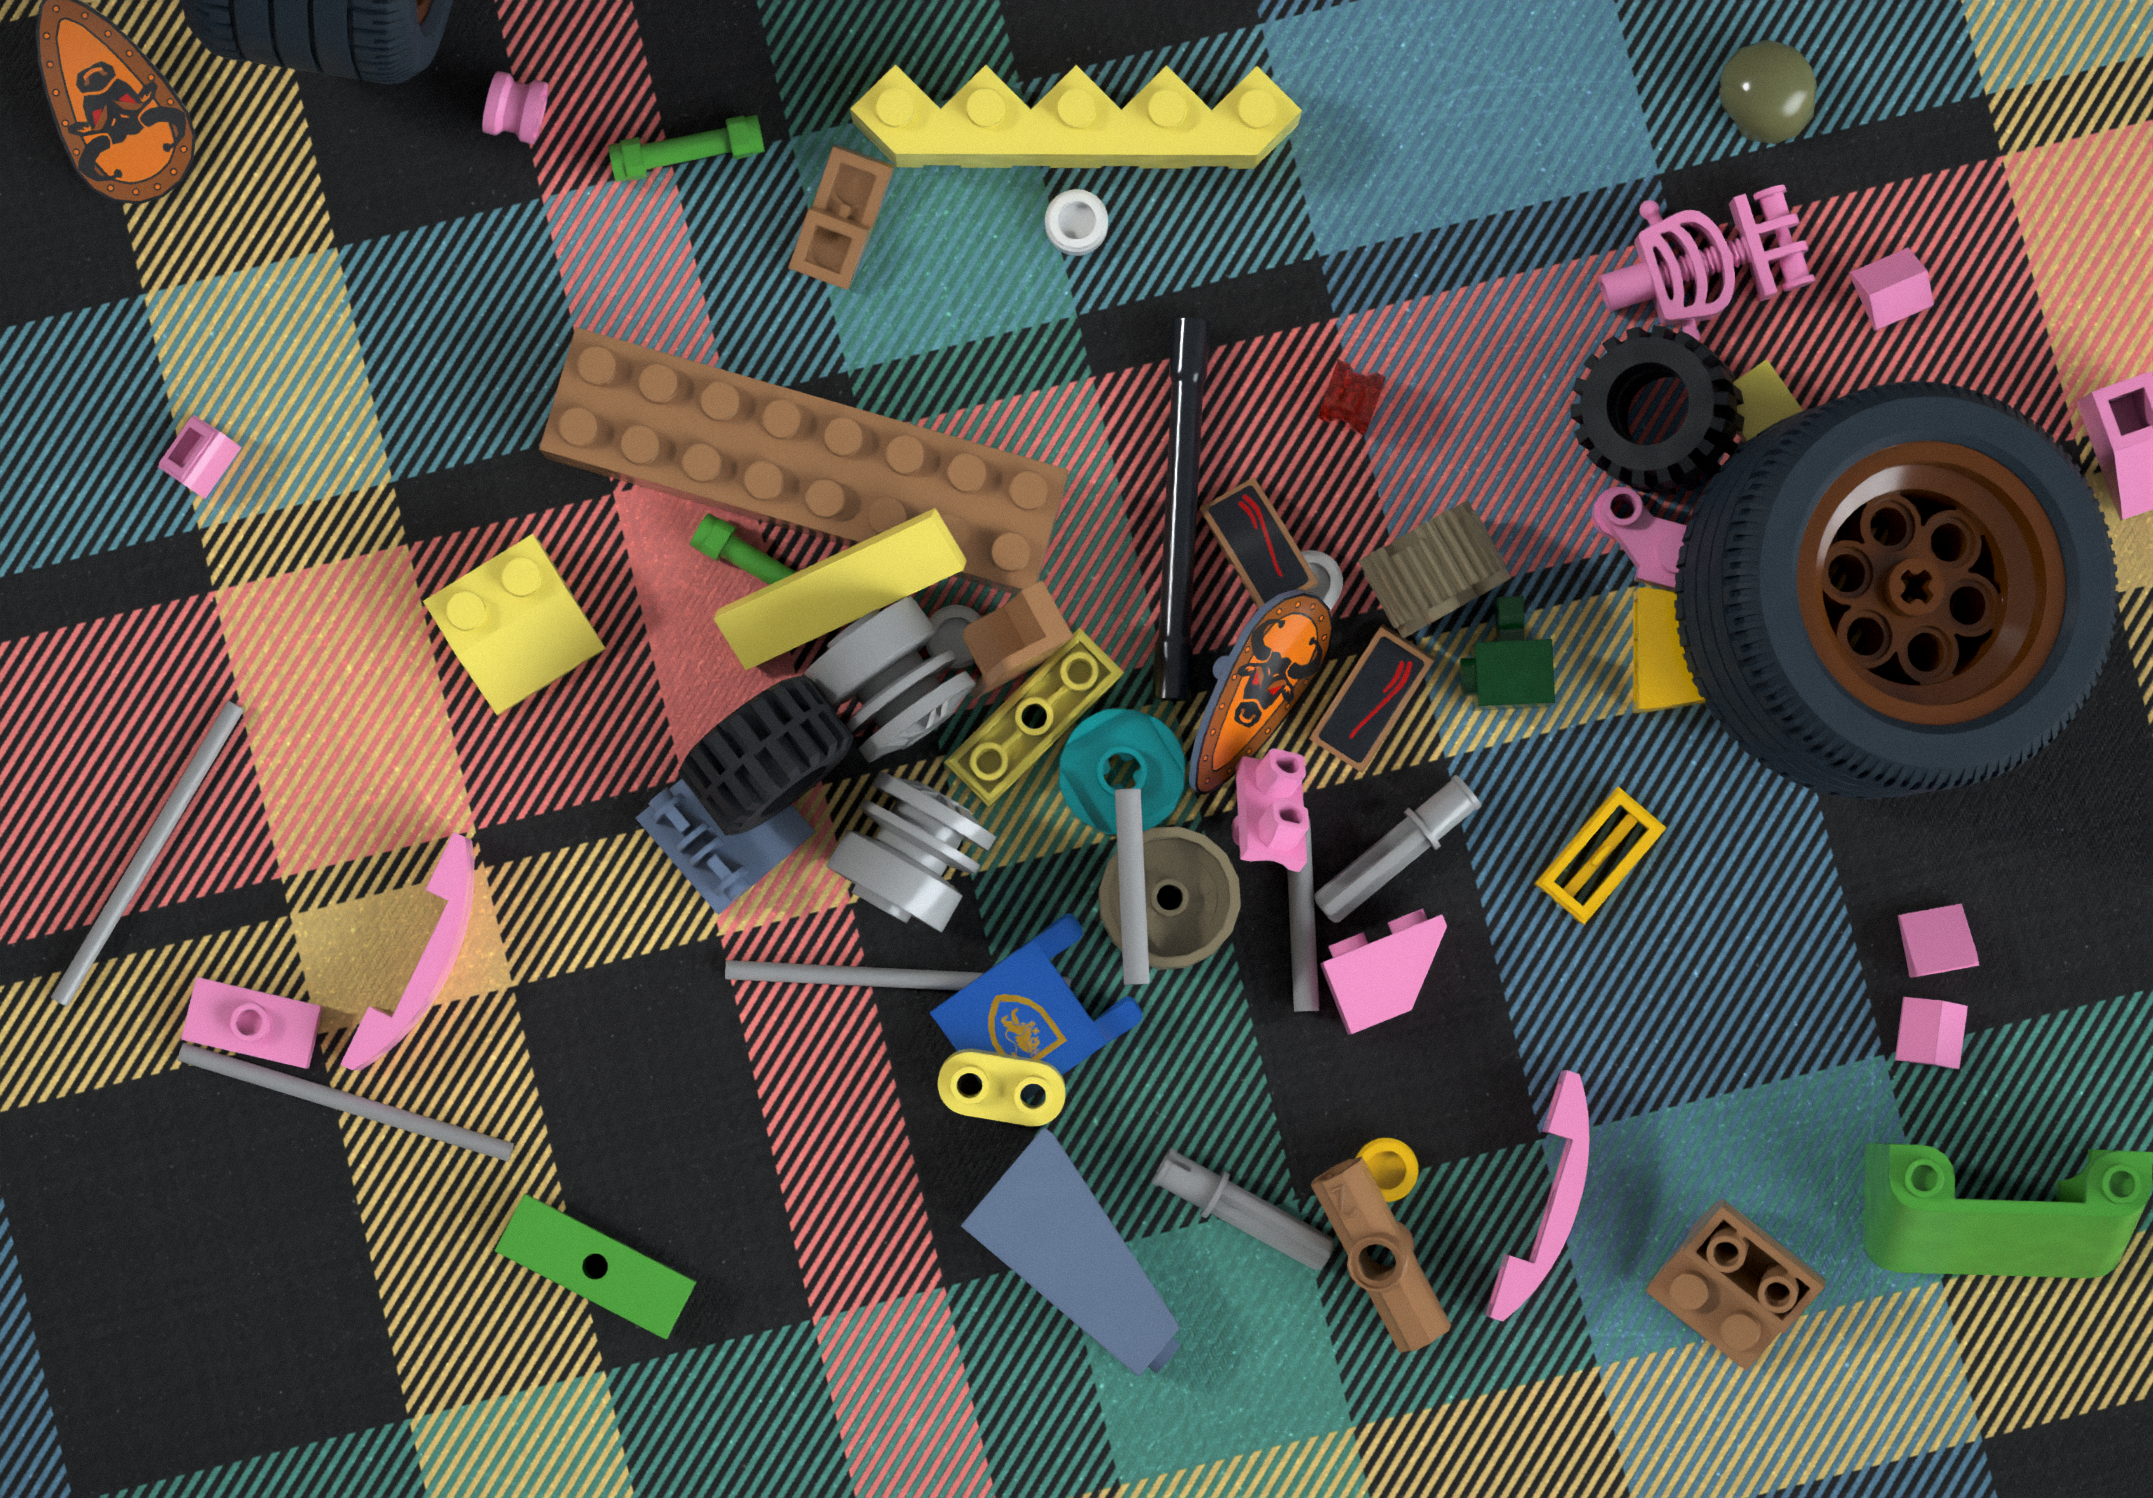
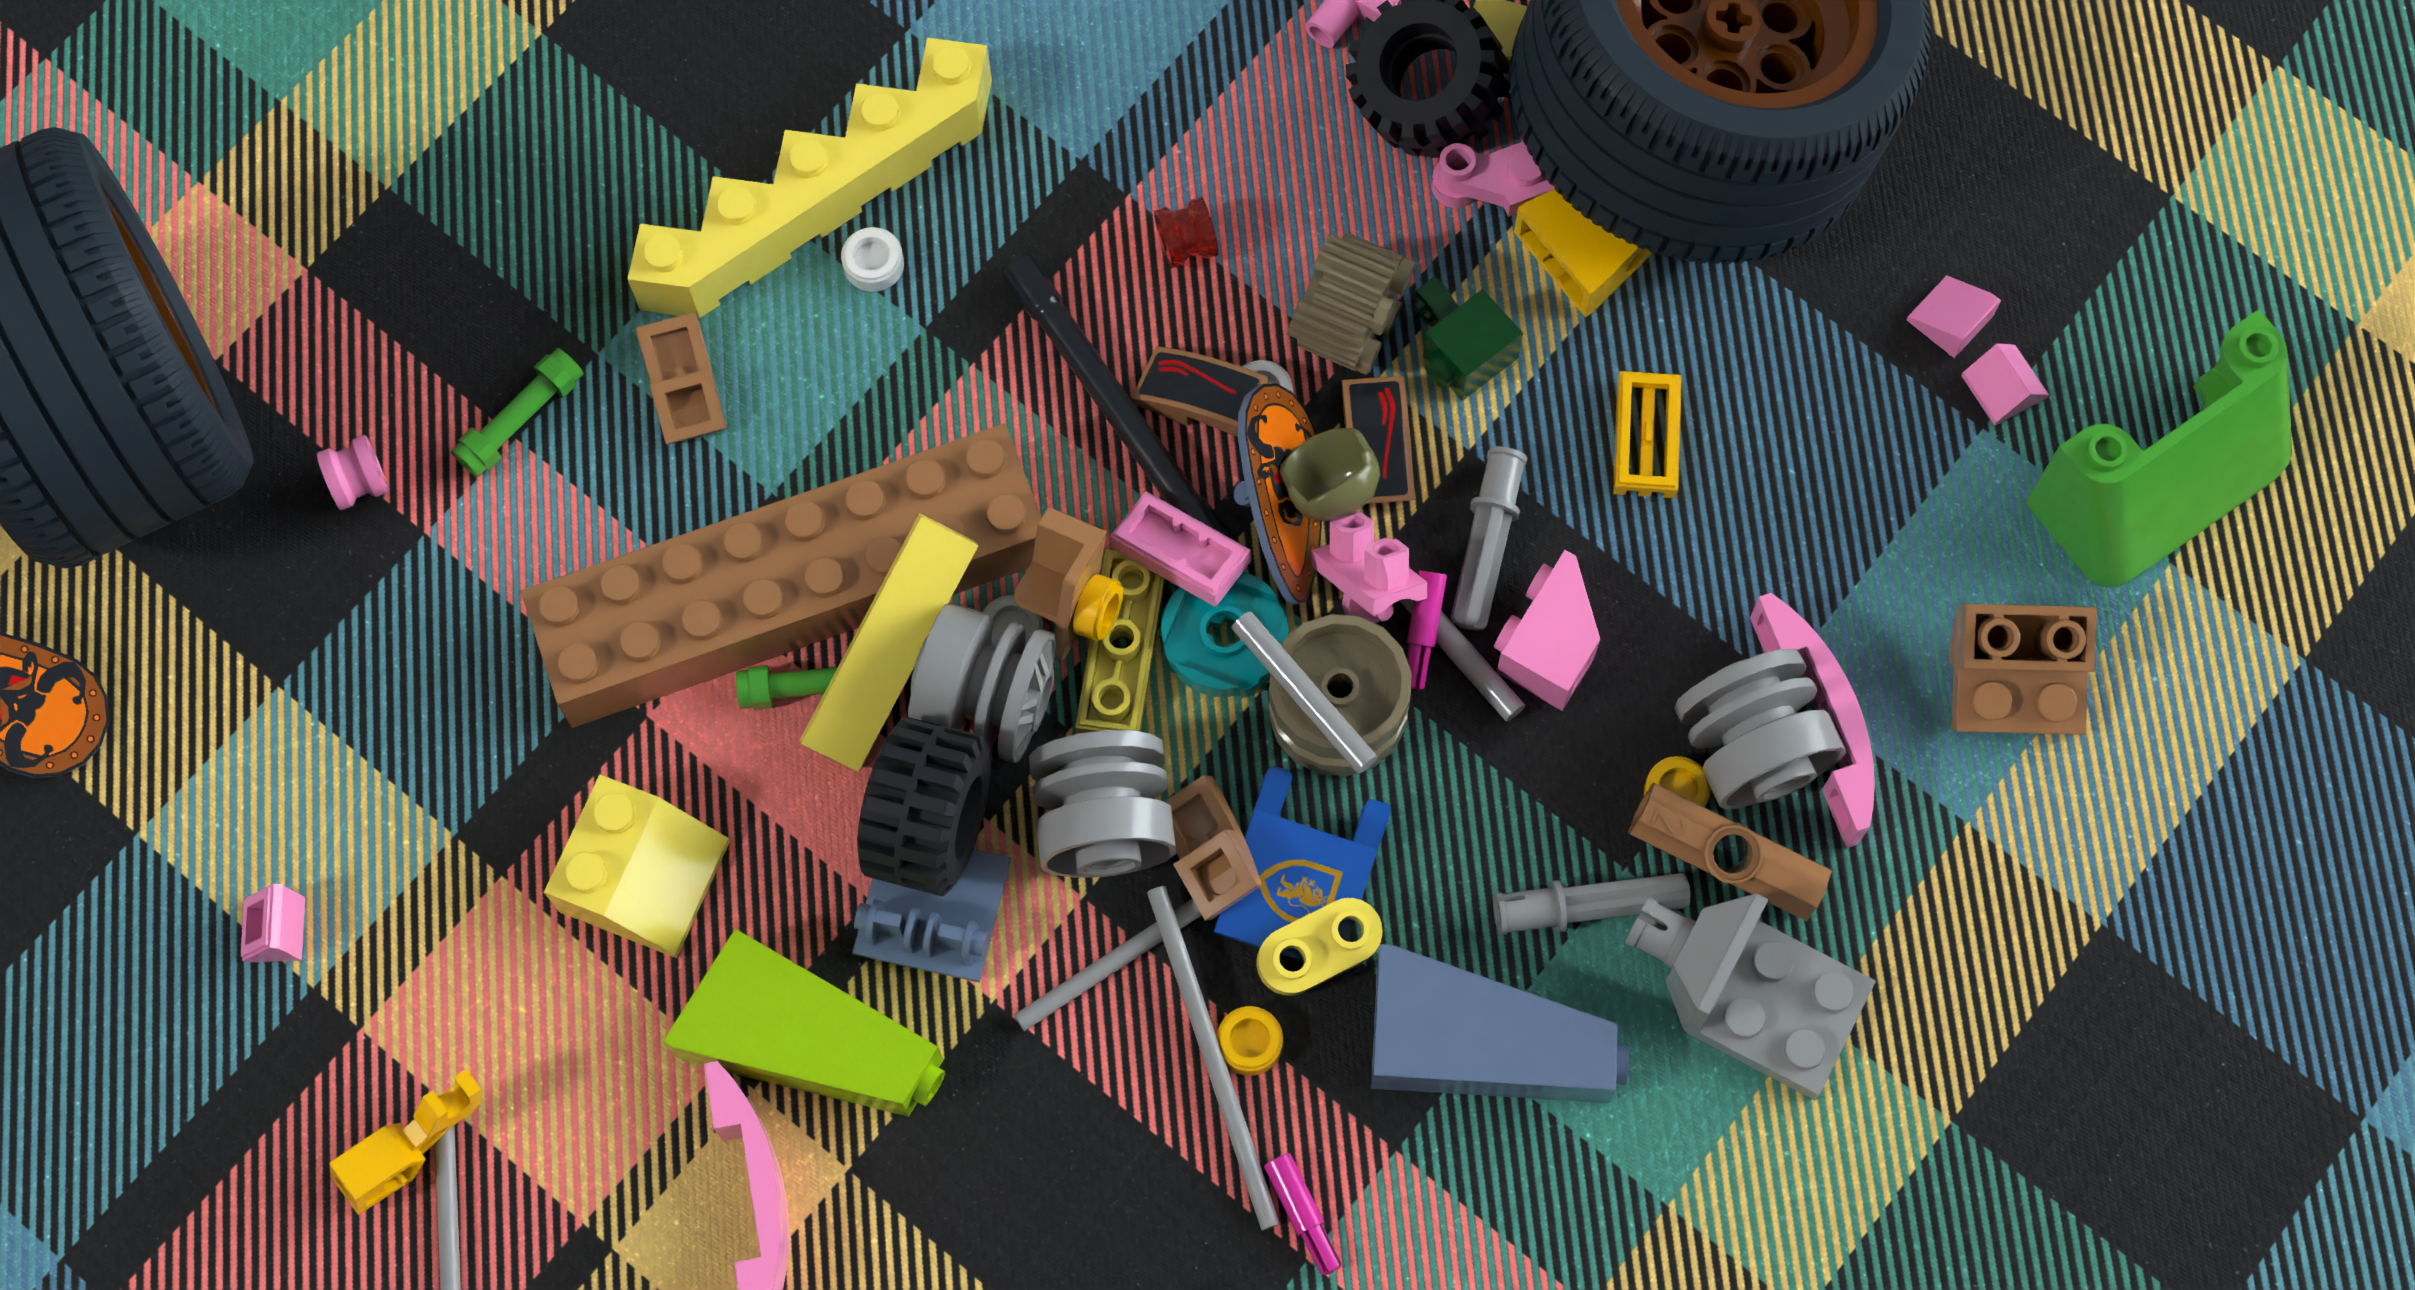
camera: 30 degrees left, 15 degrees down
(173, 720) = (395, 1153): none -> yellow piece
(546, 850) = (801, 1033): none -> lime slope
(834, 1282) = (1302, 1212): none -> dark pink pin
(855, 1110) = (1213, 1058): none -> light grey axle
(894, 1118) = (1250, 1040): none -> yellow tile
(977, 944) = (1211, 848): none -> medium nougat slope
(1028, 685) = (1098, 608): none -> yellow tile
(1134, 679) = (1180, 548): none -> bright pink plate
(1283, 889) = (1424, 627): none -> dark pink pin
(1300, 710) = (1331, 474): none -> olive hair
(1317, 1377) = (1755, 989): none -> light grey plate
(1479, 1180) = (1756, 720): none -> light grey wheel

